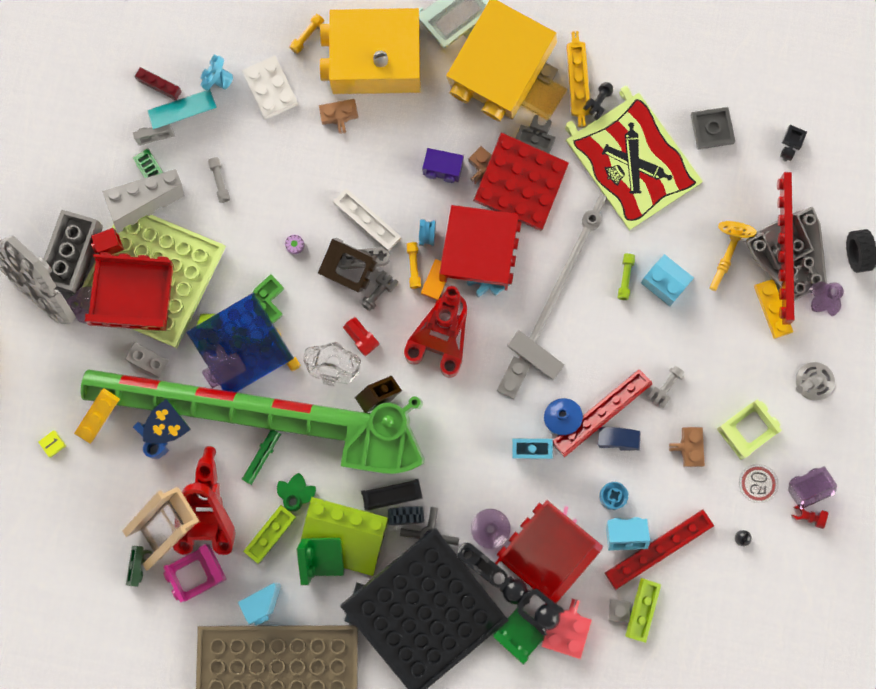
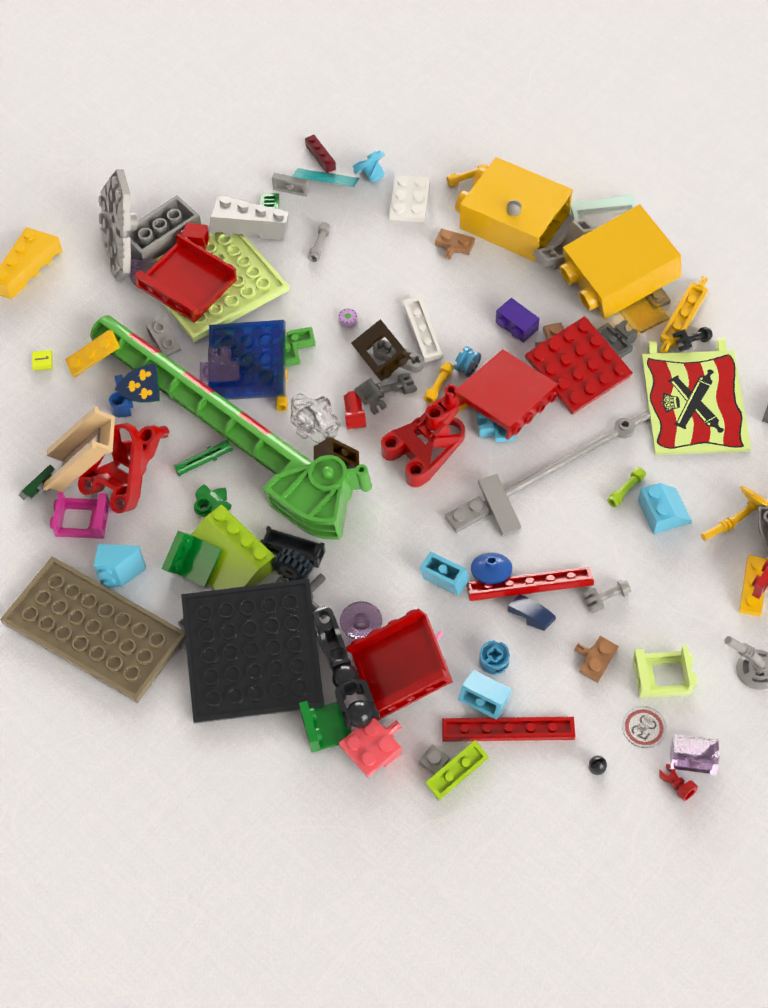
camera: 30 degrees right, 20 degrees down
(269, 534) = (165, 520): lime plate -> none
(365, 313) = (369, 393): none -> dark grey plate
(444, 58) = (553, 255): none -> light grey arch

